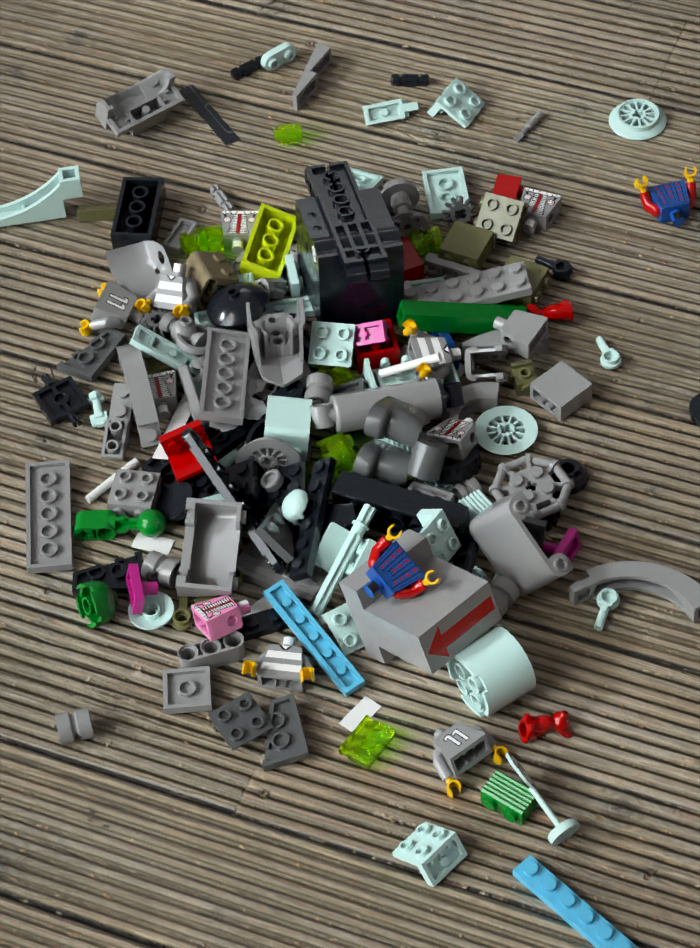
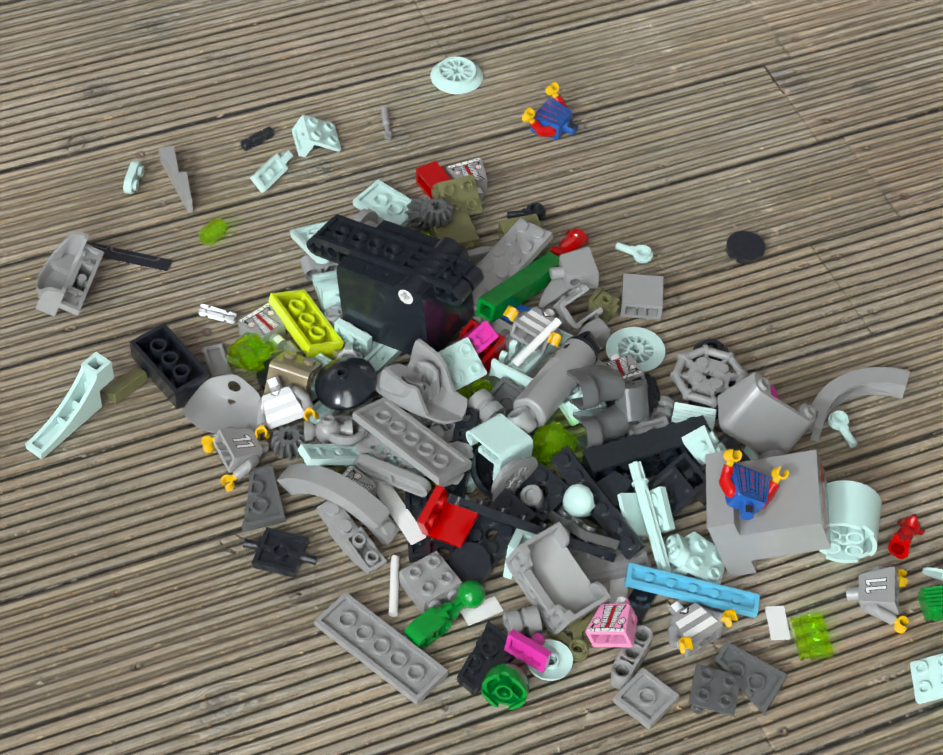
camera: 50 degrees left, 0 degrees up
(99, 417) = (327, 545): light aqua bar -> none
(246, 68) = (114, 200): black axle -> none
(333, 601) = (677, 549): none -> light aqua plate
(461, 216) = (437, 212): none -> dark grey gear

